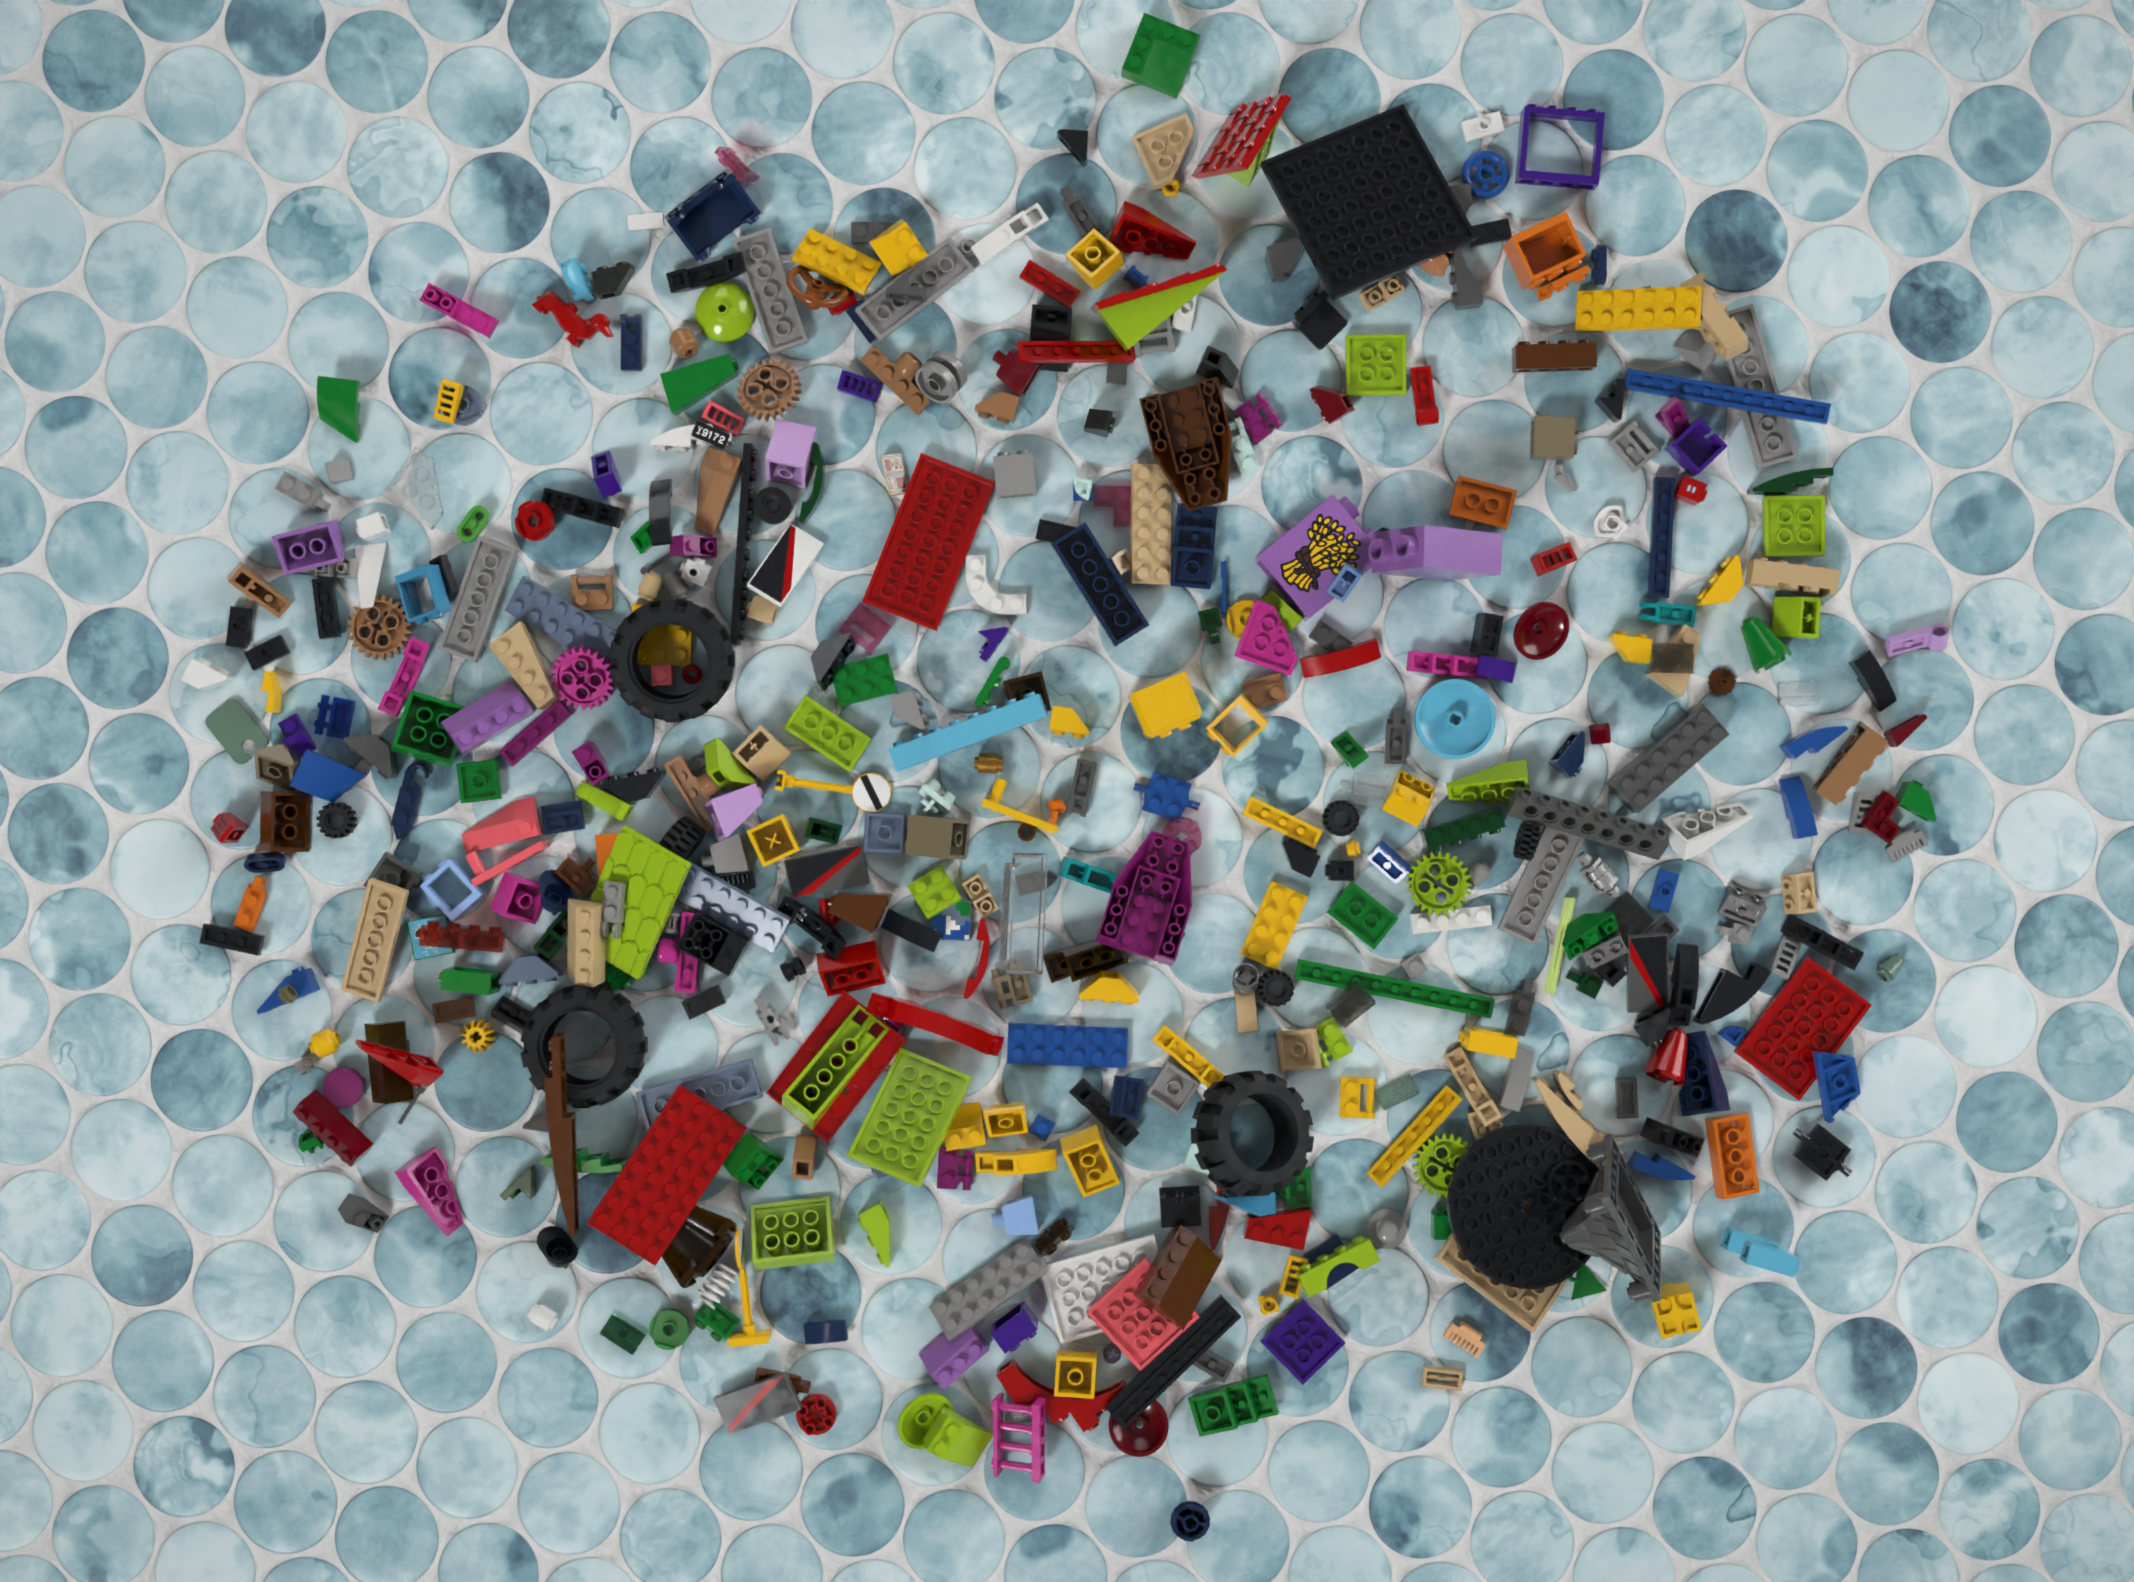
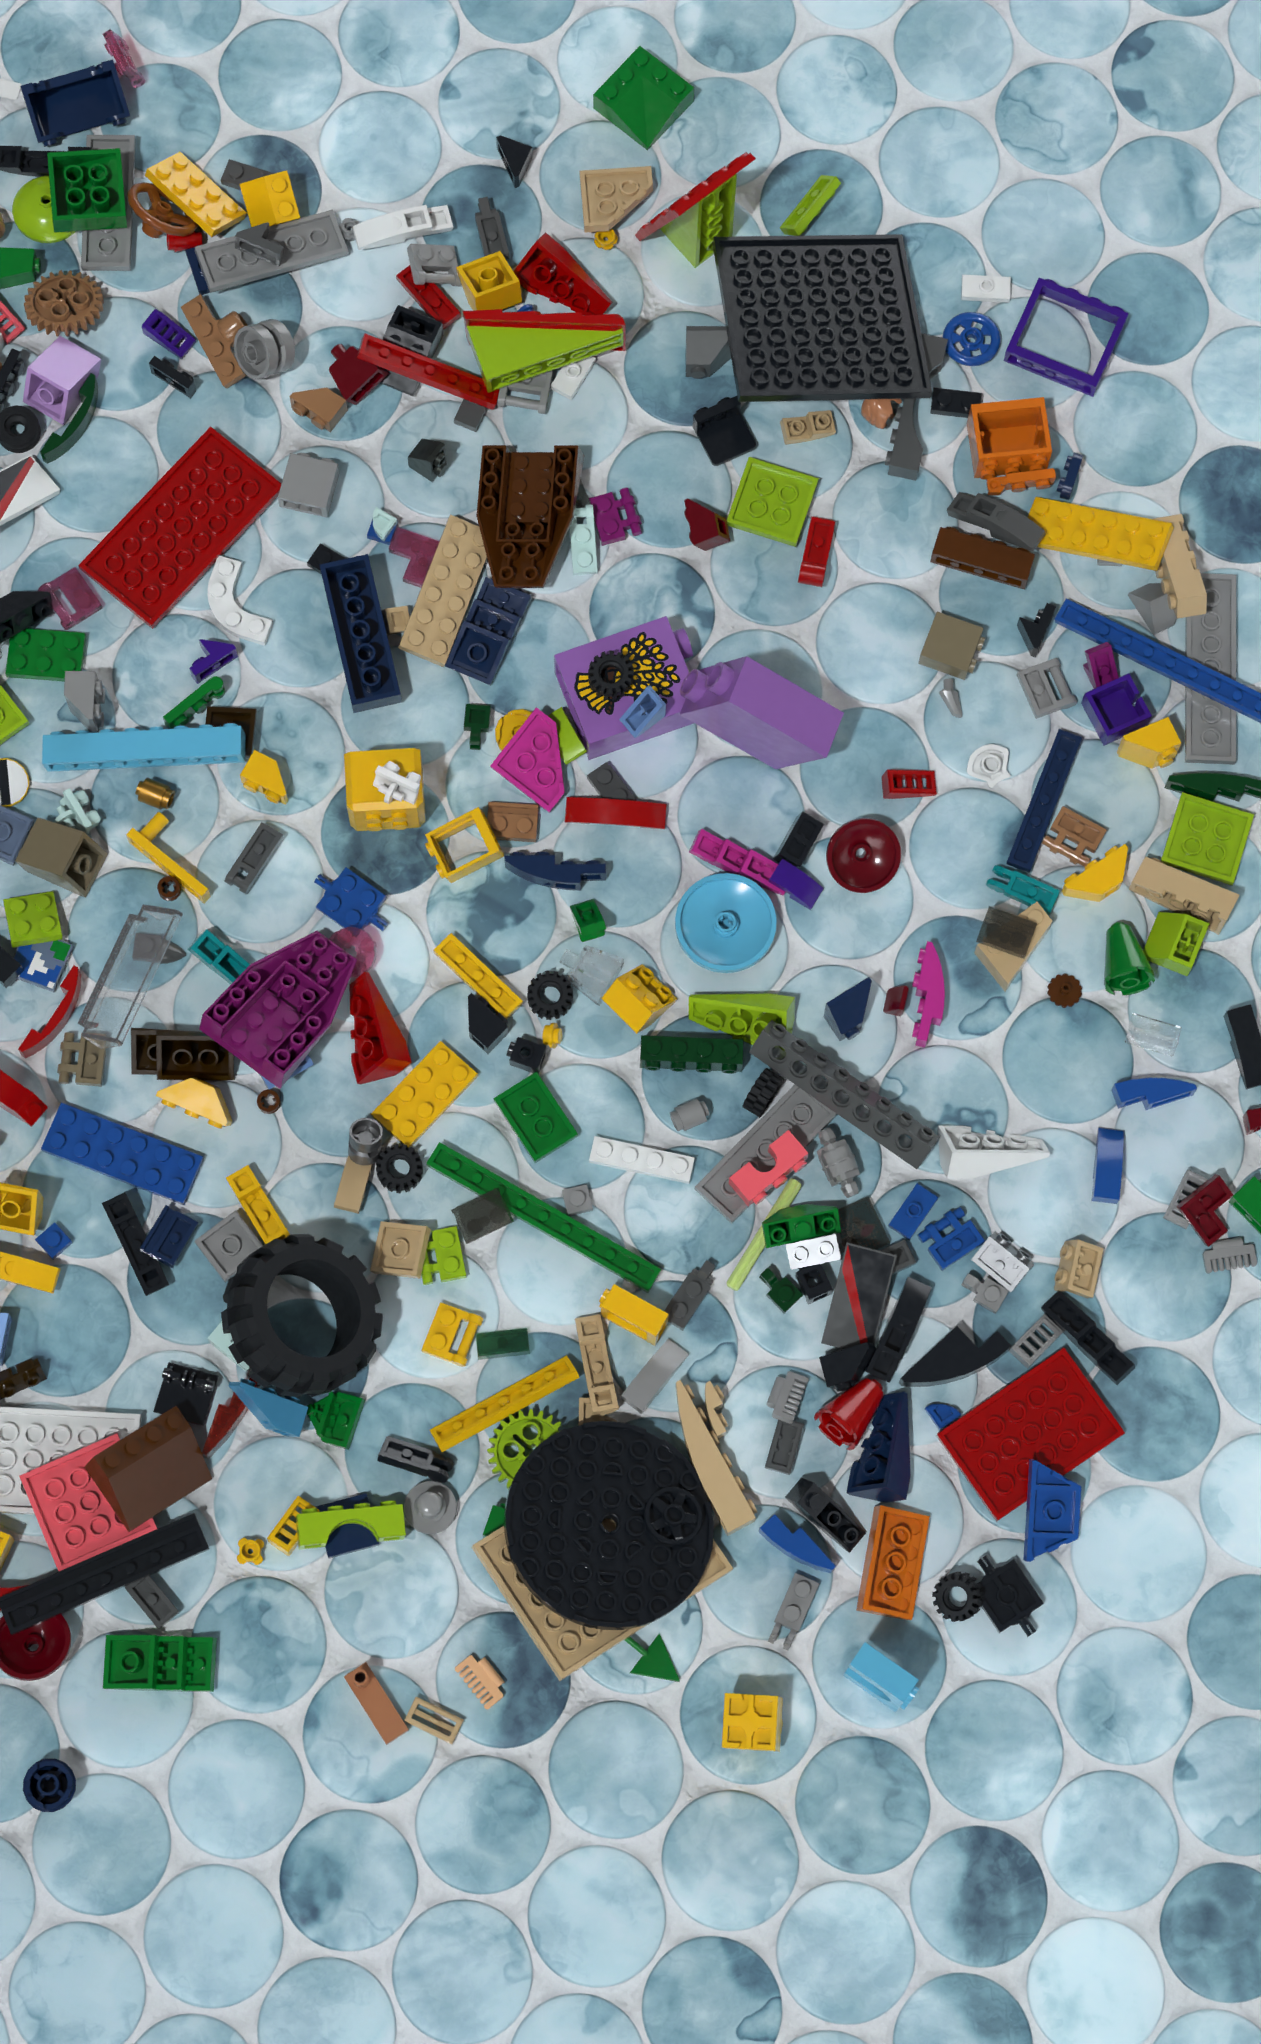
camera: 15 degrees right, 15 degrees down
(753, 291) = (87, 190): none -> green slope
(885, 422) = (180, 381): none -> black plate
(894, 474) = (171, 440): slope -> none
(980, 895) = (86, 942): tan slope -> none
(1042, 252) = (433, 258): none -> light grey plate
(1056, 806) = (215, 869): orange plate -> none
(1089, 1161) = (95, 1299): yellow slope -> none
(1114, 1359) = (32, 1555): clear purple bush -> none
(1164, 974) = (265, 1094): none -> reddish brown bush
(1180, 711) = (395, 785): none -> white hips
(1217, 364) = (590, 441): pearl dark grey slope -> none
(1223, 577) = (511, 677): blue piece -> none
(1225, 897) = (378, 1040): none -> red wedge
(1284, 1228) = (297, 1457): red wedge -> none
(1302, 1341) = (275, 1612): dark purple plate -> none
(1304, 723) = (543, 870): none -> dark blue slope
(1317, 550) = (610, 689): none -> black tyre
(1322, 103) = (810, 205): none -> lime plate
(1363, 1199) = (415, 1459): none -> black hinge
(1389, 862) = (590, 1068): blue slope -> none
(1395, 739) = (648, 925): dark grey hinge -> none
(1396, 1380) = (376, 1703): none -> nougat piece
(1448, 868) = (622, 1123): lime gear -> none
(1482, 502) = (847, 691): orange plate -> none
(1555, 321) = (997, 517): none -> dark grey slope
(1562, 886) = (753, 1184): none -> coral arch
(1612, 1059) = (781, 1394): none -> light grey piece
(1617, 1223) = (711, 1565): dark grey piece -> none
(1621, 711) = (931, 987): none -> dark pink slope
(1630, 648) = (965, 911): yellow slope -> none
(1667, 758) = (967, 1054): dark grey brick -> none
(1671, 1212) = (794, 1608): none -> light grey hinge
(1690, 490) = (1095, 758): red brick -> none
(1693, 552) = (1079, 831): none -> medium nougat plate
(1704, 904) = (956, 1244): none -> blue plate
(1735, 466) = (1151, 745): none -> yellow slope
(1789, 1176) = (973, 1596): none -> black tyre
(1850, 763) = (1186, 1132): medium nougat wedge -> none
(1889, 969) = (1162, 1397): sand green cone -> none

